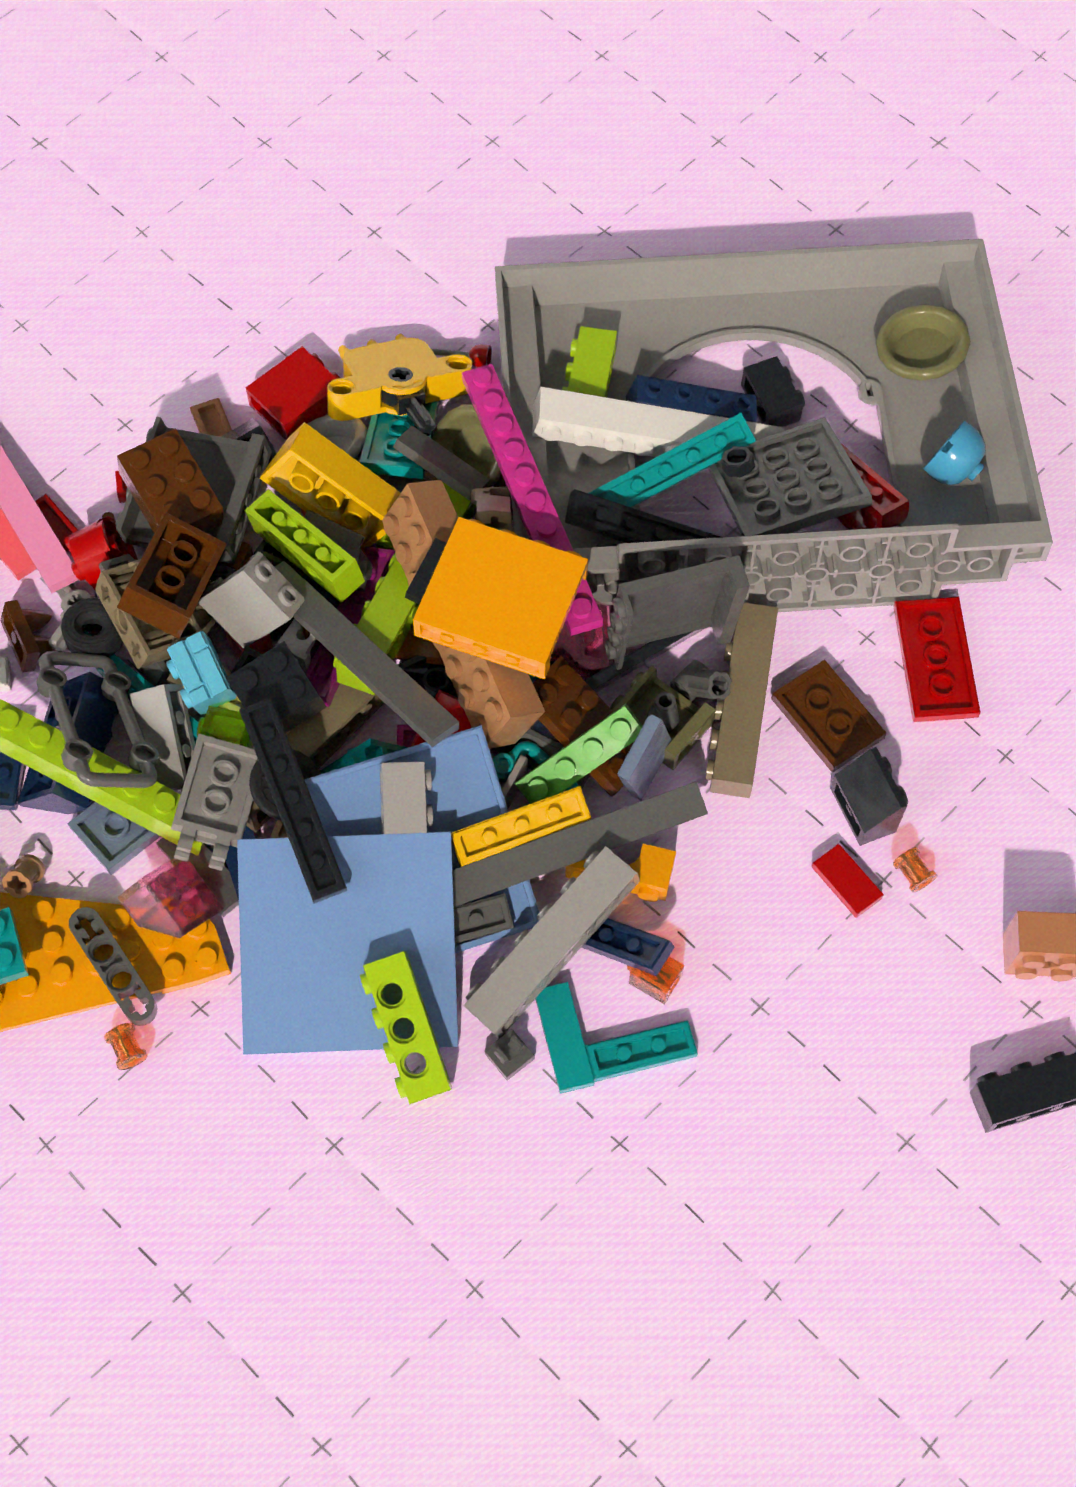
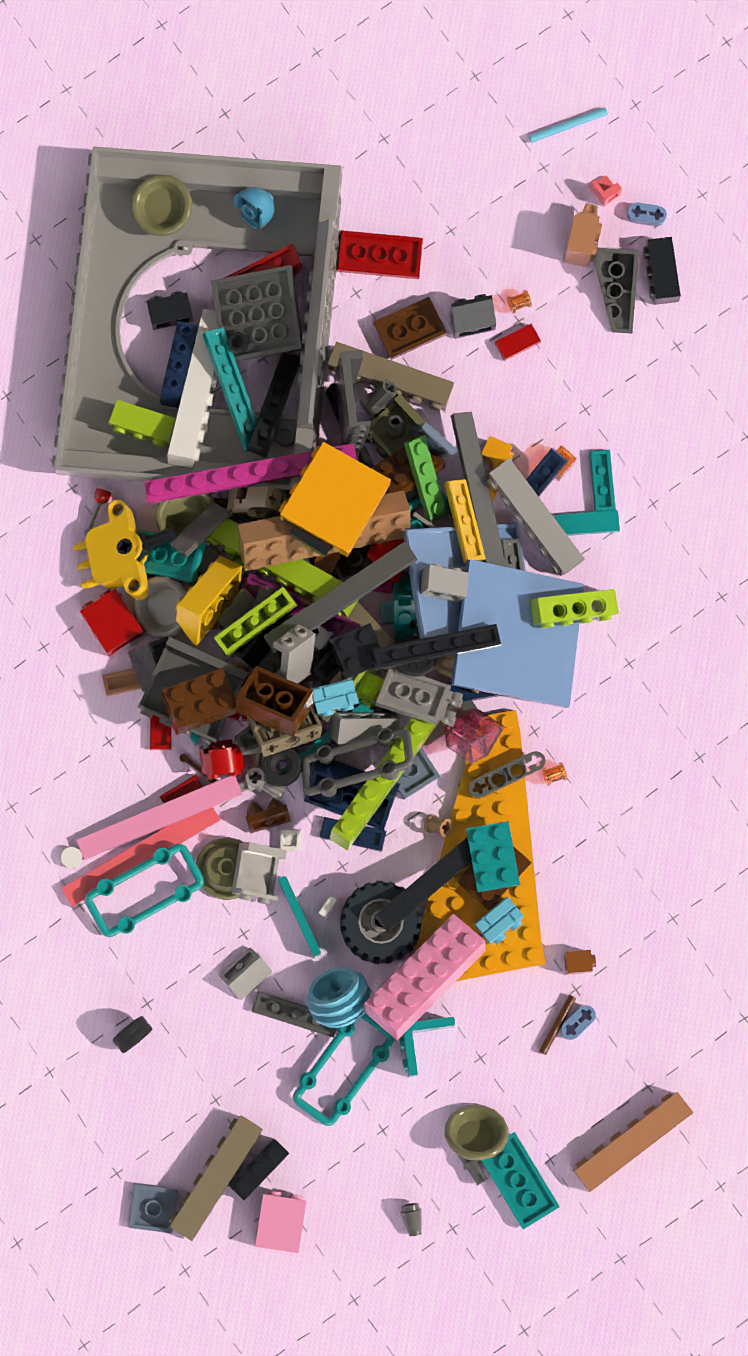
camera: 85 degrees left, 15 degrees up
(509, 1054) = (593, 555): dark grey tile -> none
(994, 1019) = (618, 280): none -> dark grey wedge

